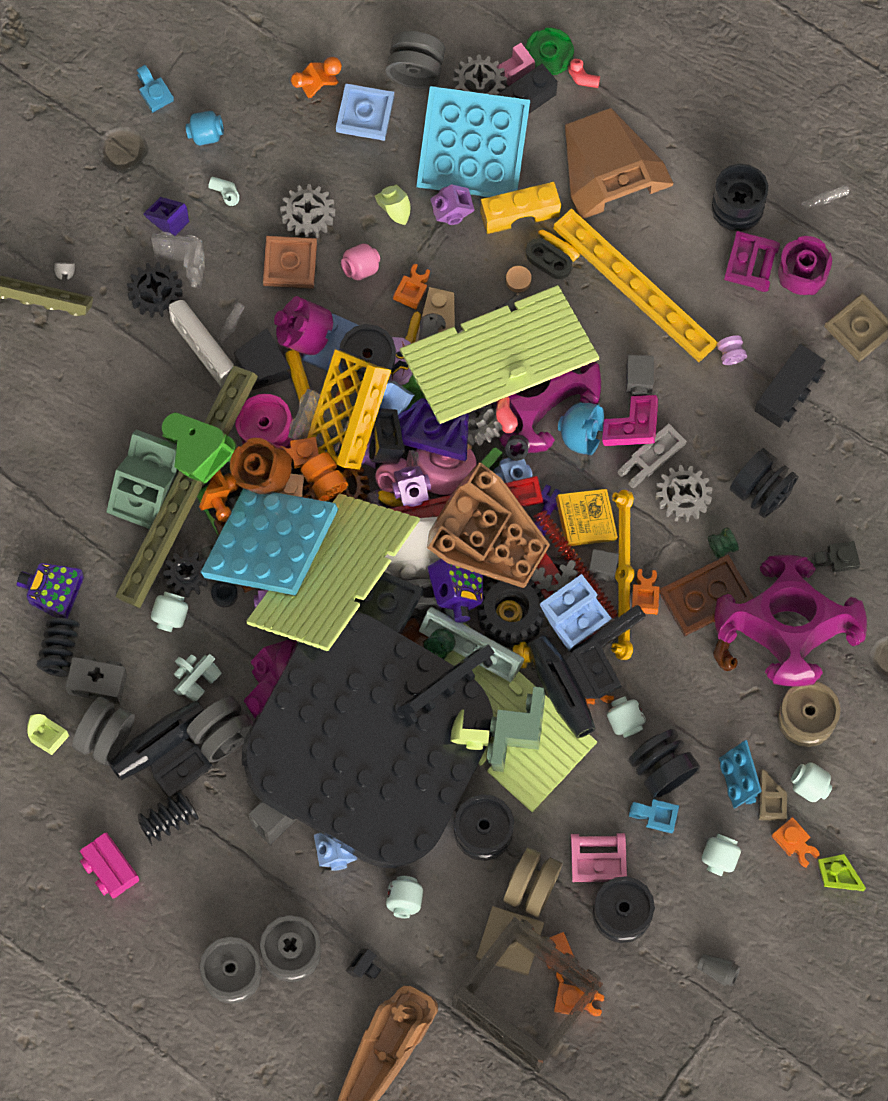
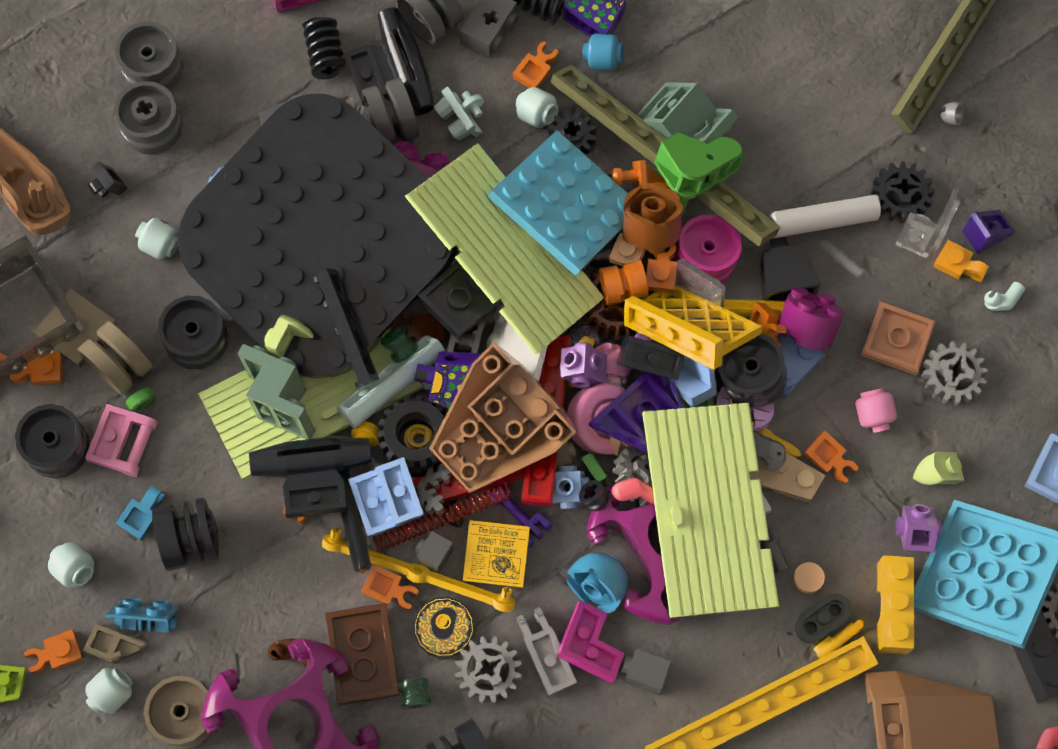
camera: 110 degrees right, 0 degrees up
(96, 570) = (603, 52): none -> dark azure head
(130, 627) = (535, 69): none -> orange plate
(205, 230) = (957, 261): none -> light orange plate
(317, 363) = (767, 318): none -> orange plate
(557, 852) = (141, 399): none -> bright green tile
(626, 717) = (257, 518): light aqua head -> none
(660, 541) = (443, 627): none -> tile

